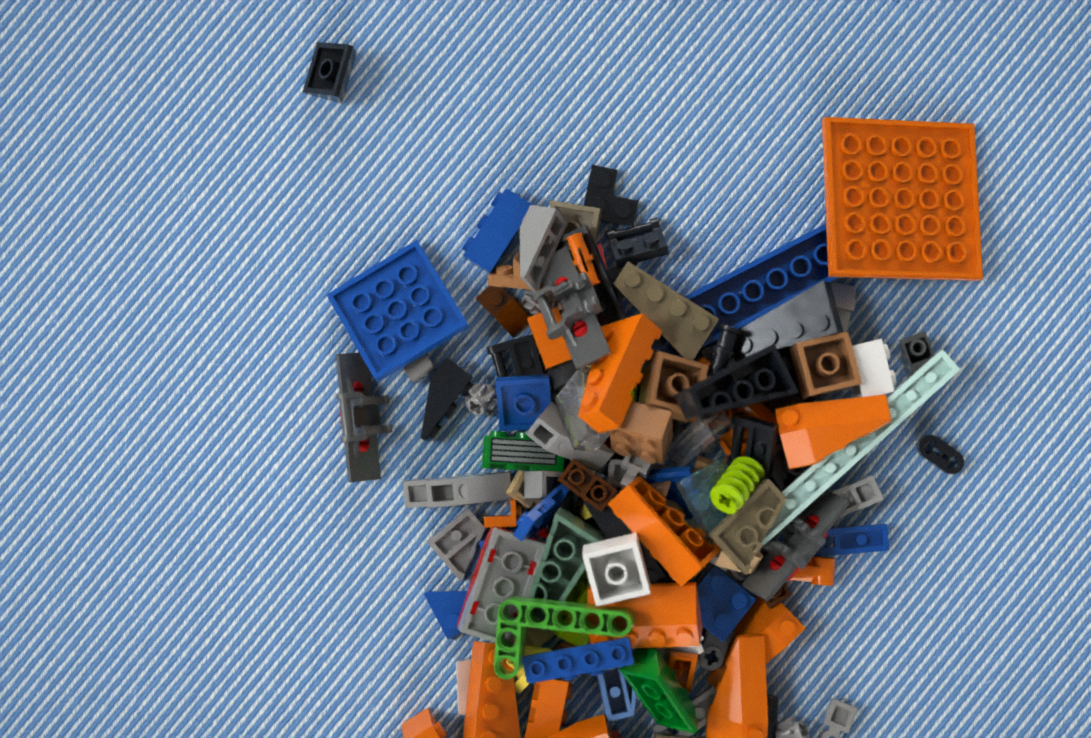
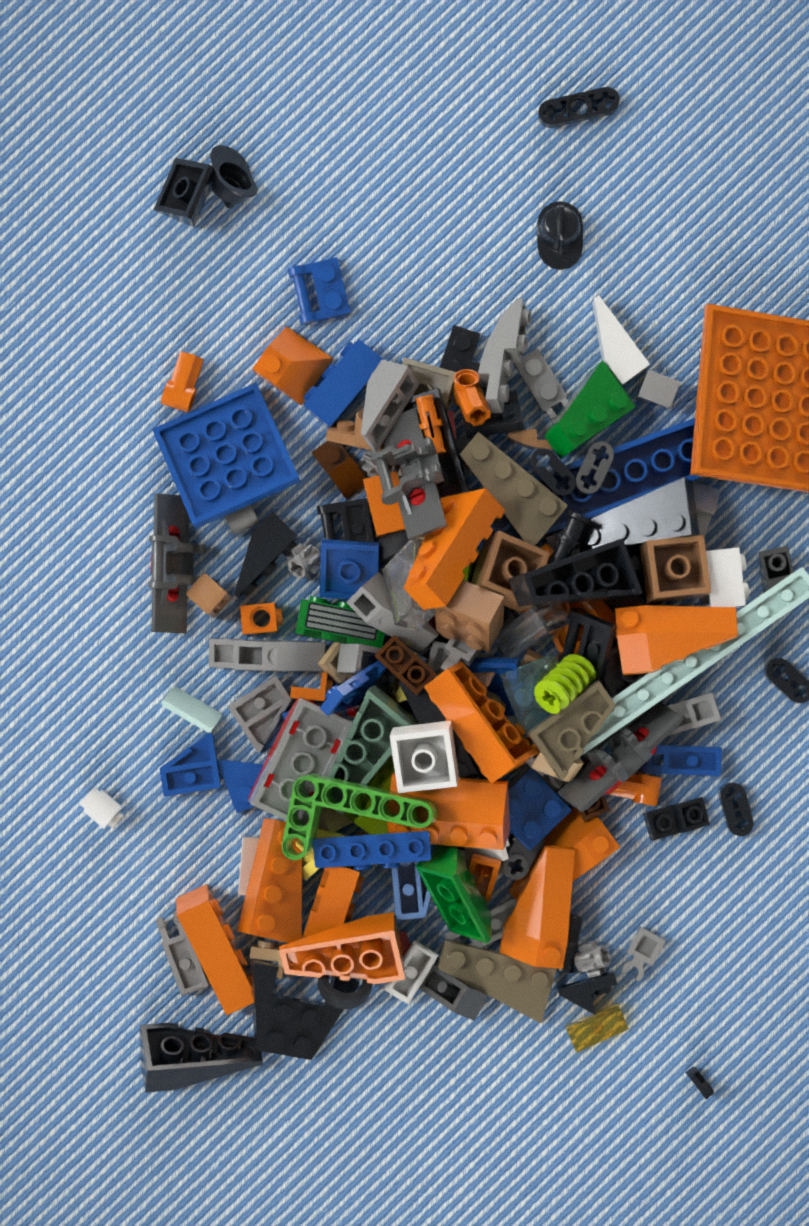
camera: 10 degrees right, 0 degrees up
(323, 650) = (102, 808): none -> white brick
(348, 254) = (181, 389): none -> orange piece
(371, 53) = (231, 176): none -> black piece
(394, 549) = (192, 709): none -> light aqua slope
(397, 442) = (208, 595): none -> medium nougat slope
(401, 604) = (192, 769): none -> blue wing
(435, 455) = (247, 618): none -> orange brick
(448, 219) = (292, 365): none -> orange slope
(472, 144) = (328, 287): none -> blue plate
(616, 230) = (470, 397): none -> orange piece
(641, 181) = (501, 351): none -> light grey slope
(674, 262) = (528, 439): none -> medium nougat slope
(679, 70) = (560, 235): none -> black piece
(682, 211) = (541, 383): none -> light grey hinge
(705, 285) = (547, 477): none -> black beam
(727, 228) = (589, 411): none -> green wedge
(745, 283) = (601, 470): none -> dark grey beam
(746, 170) = (616, 346): none -> white slope
(787, 201) = (658, 389): none -> light grey panel
(853, 594) = (676, 818): none -> black slope
(912, 576) = (742, 806): none -> black beam

